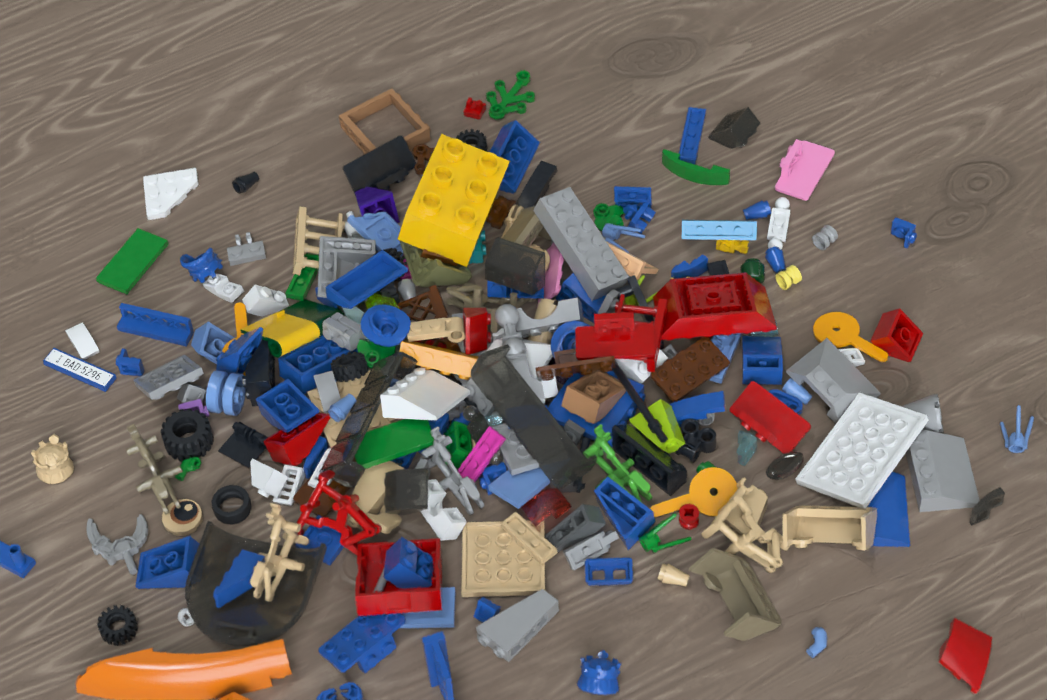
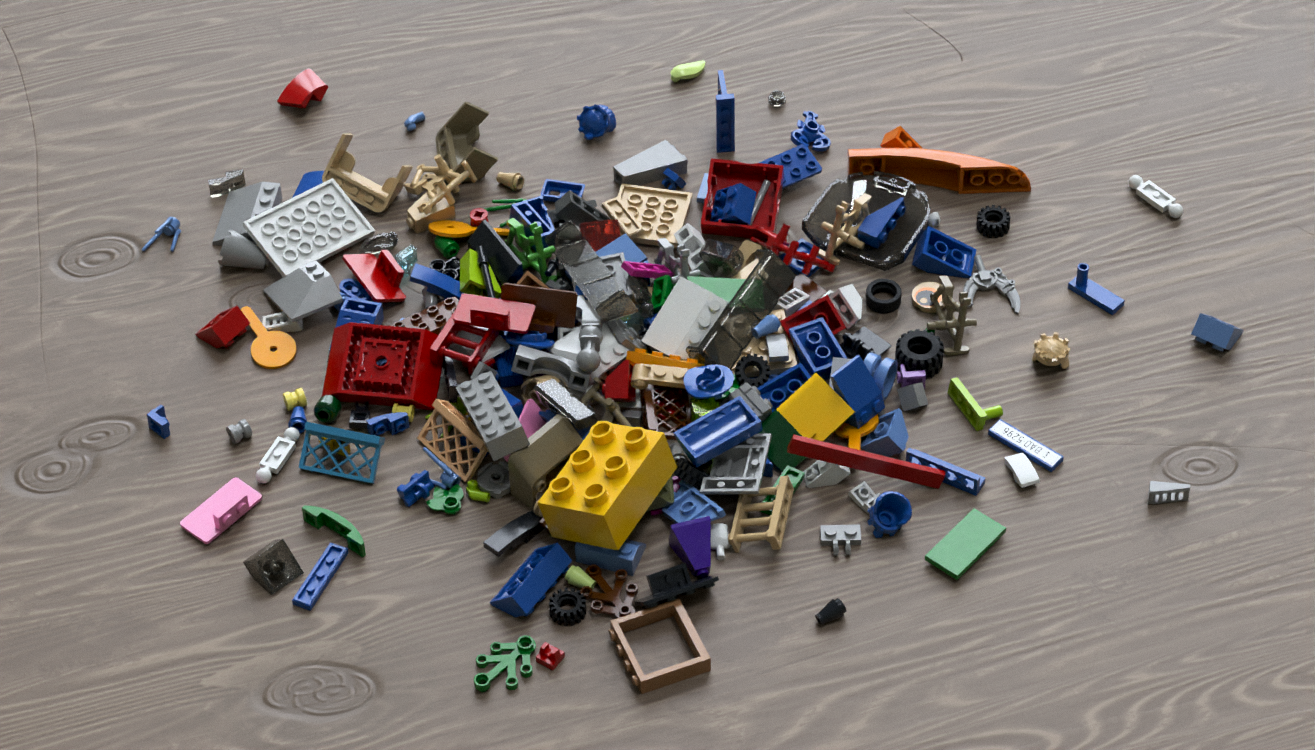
camera: 170 degrees left, 5 degrees down
(126, 384) = (969, 407): none -> lime piece
(129, 366) = (974, 433): blue bracket -> none
(167, 190) = (921, 624): white plate -> none
(168, 377) = (933, 402): light grey plate -> none
(229, 289) = (865, 461): none -> red tile
(632, 195) = (415, 496): blue slope -> none
(758, 210) = (290, 472): blue cone -> none

